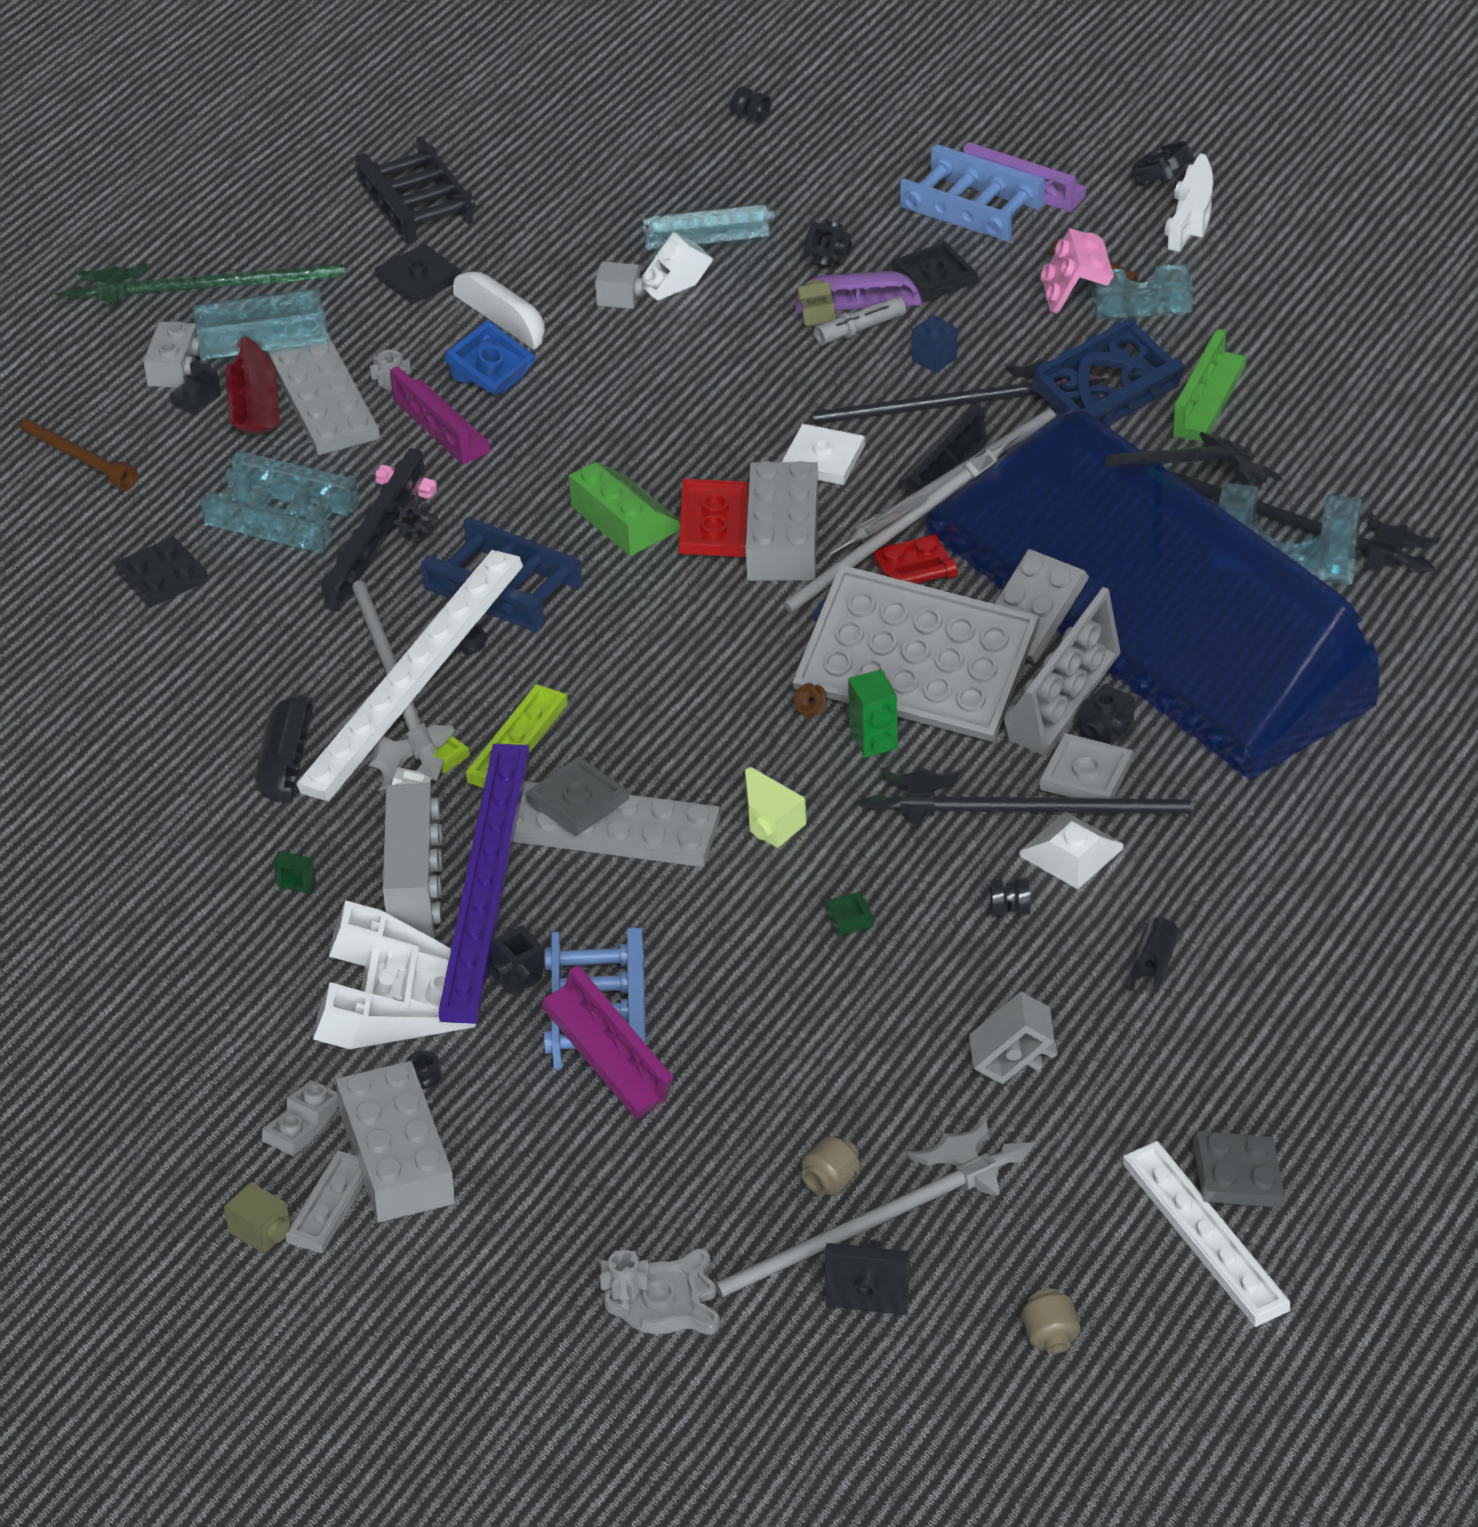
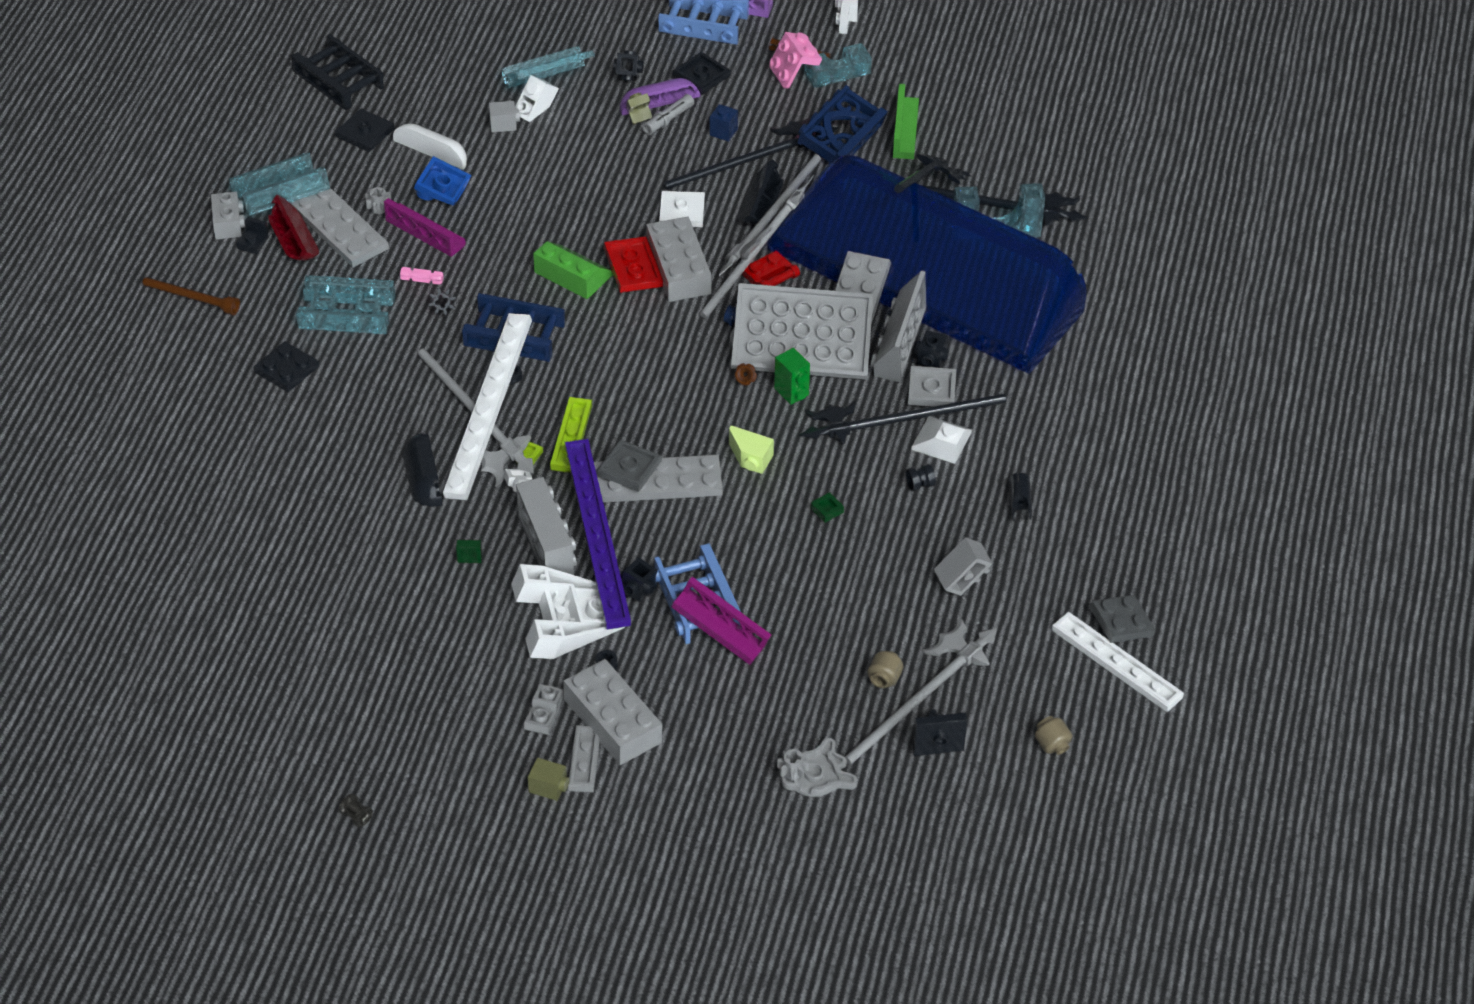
camera: 20 degrees left, 5 degrees up
(114, 288) = (161, 176): clear green piece -> none
(373, 530) = (417, 319): black plate -> none

